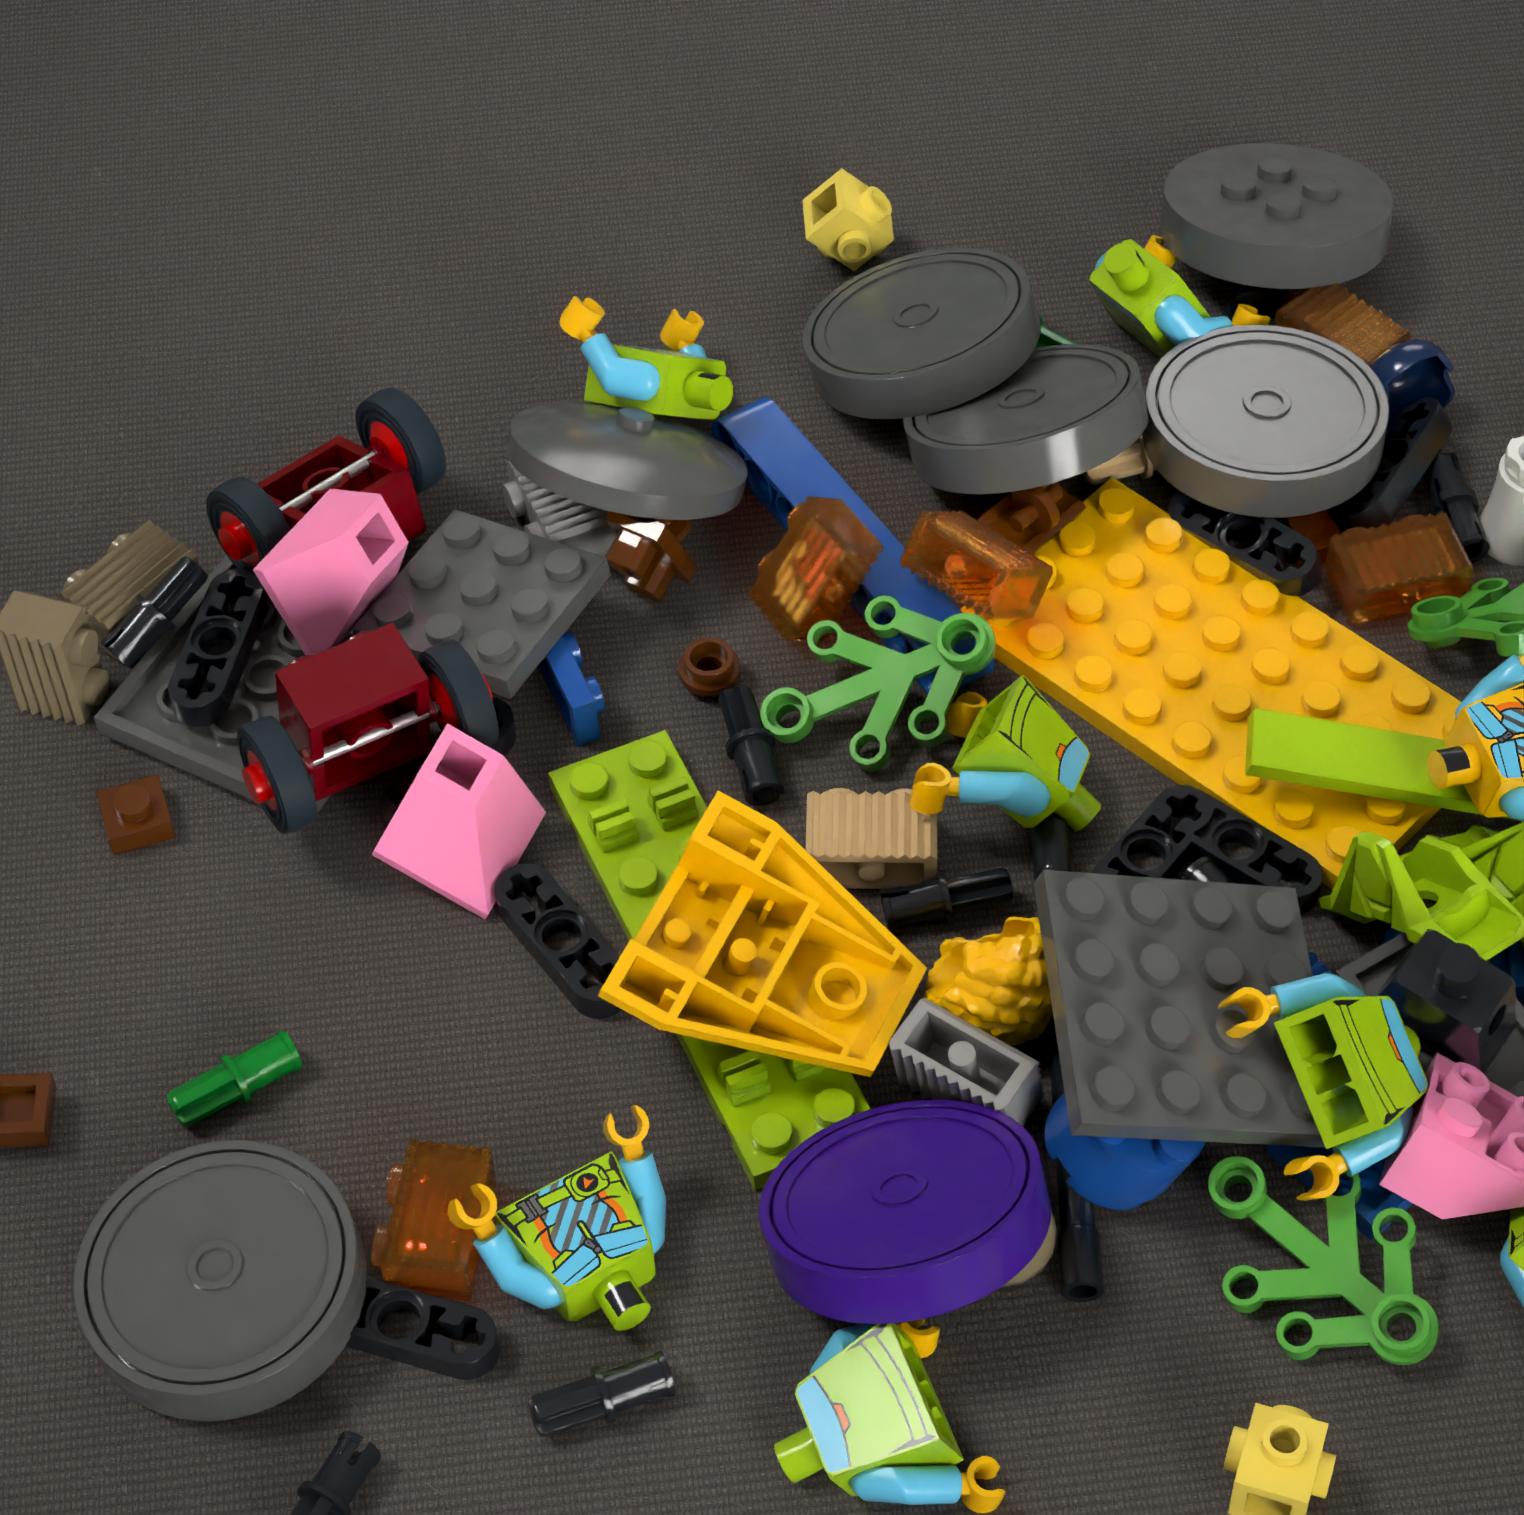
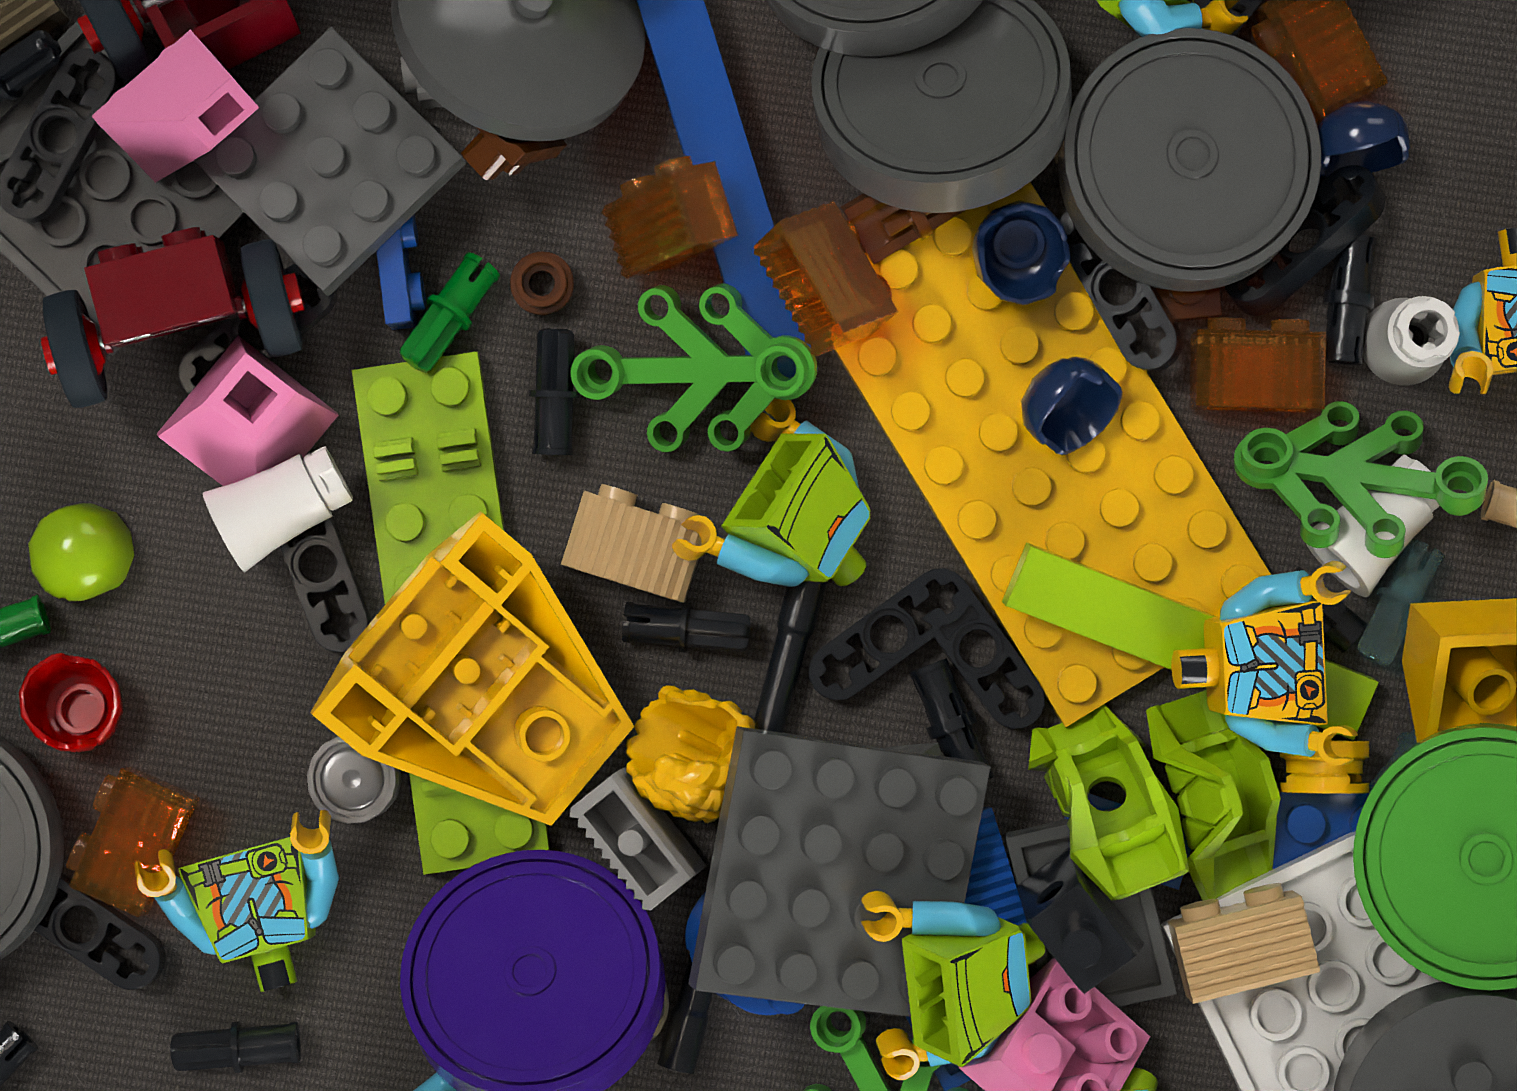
camera: 15 degrees right, 35 degrees up
(315, 987) = (80, 552): none -> lime hair
(340, 1109) = (70, 702): none -> red hair
(507, 873) = (276, 505): none -> white plant
(629, 702) = (448, 313): none -> green axle
(667, 1094) = (351, 784): none -> flat silver wheel
(1144, 511) = (1021, 252): none -> dark blue hair
(1240, 606) = (1070, 403): none -> dark blue hair

